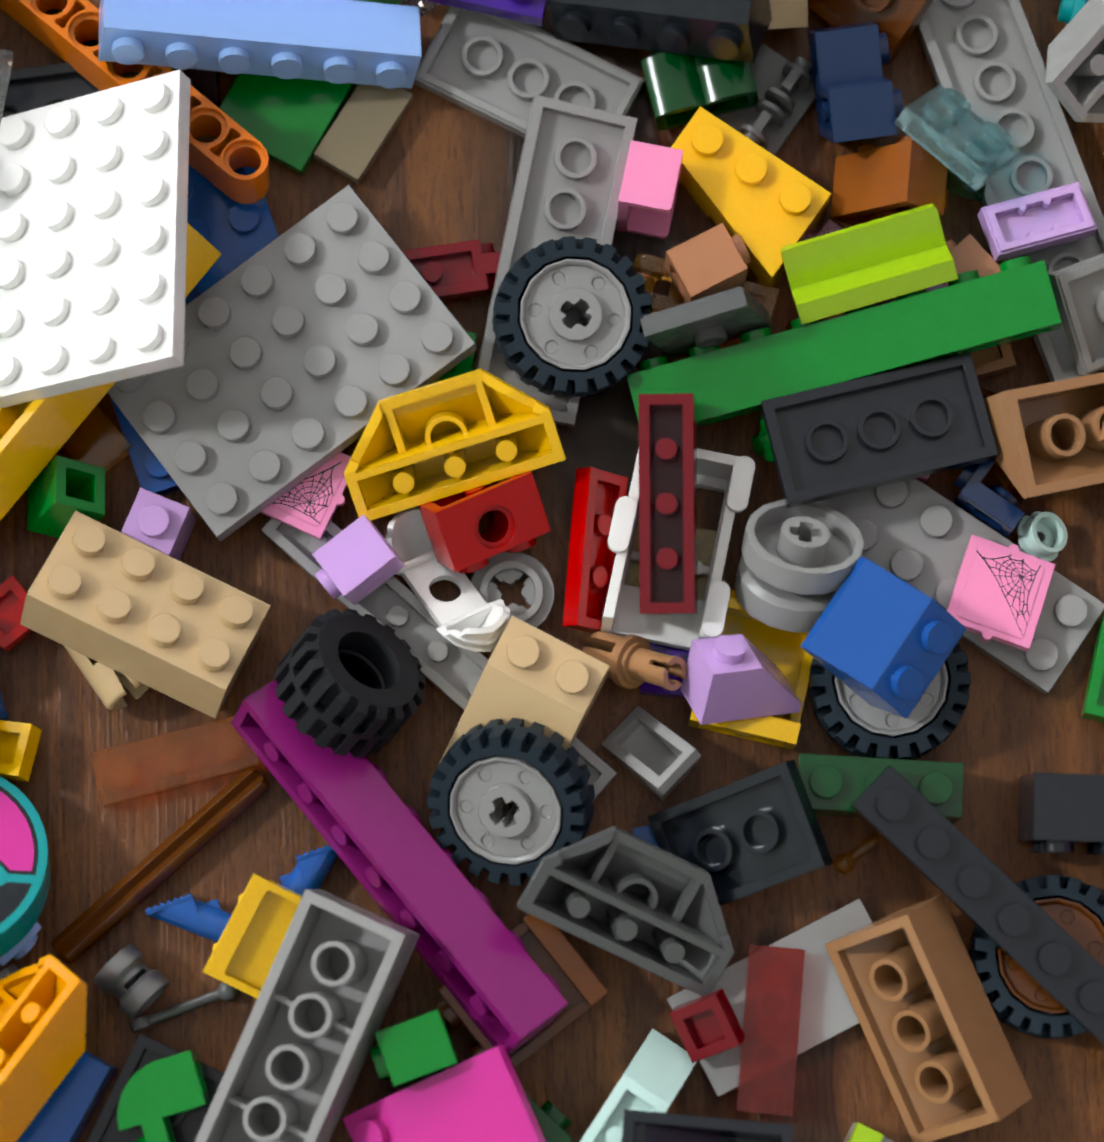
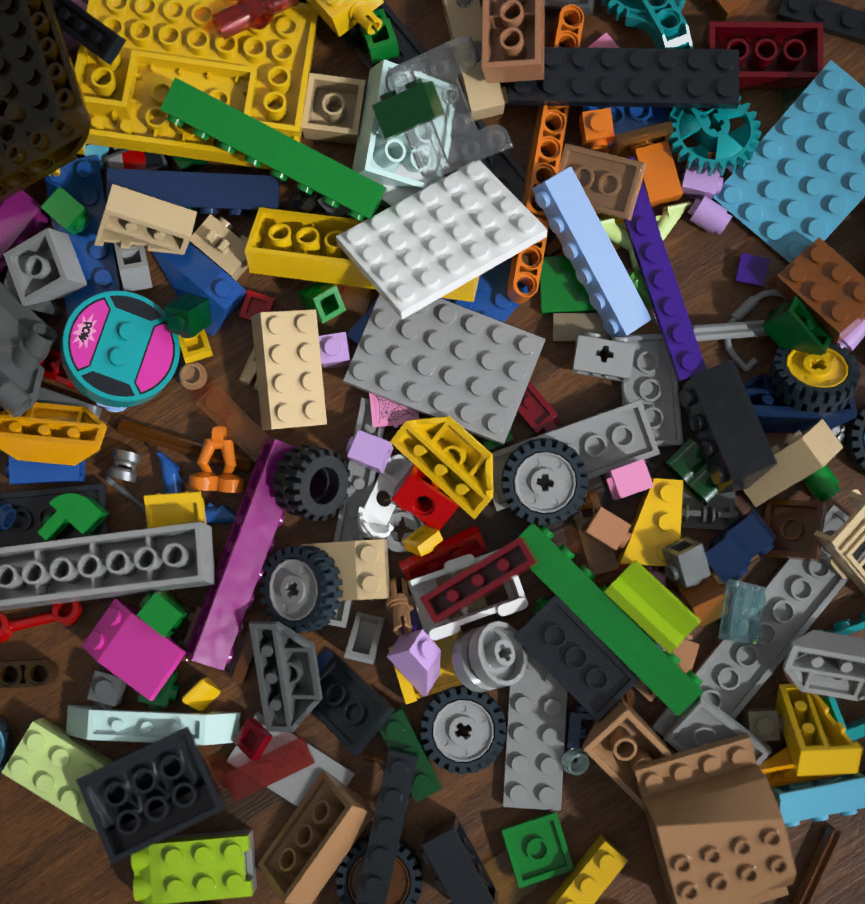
camera: 65 degrees right, 5 degrees up
(54, 784) = (193, 376): none -> medium nougat plate
(259, 827) = (209, 480): none -> orange piece
(428, 143) = (615, 368): none -> light grey brick
(550, 564) = (422, 540): none -> yellow plate
(586, 1073) = (201, 694): none -> yellow slope
(705, 321) = (577, 546): dark grey plate -> none
(830, 172) = (686, 562): none -> dark grey brick
(883, 638) = (475, 719): blue slope -> none
(1000, 592) = (534, 758): bright pink piece -> none
(1037, 221) = (725, 673): lavender plate -> none

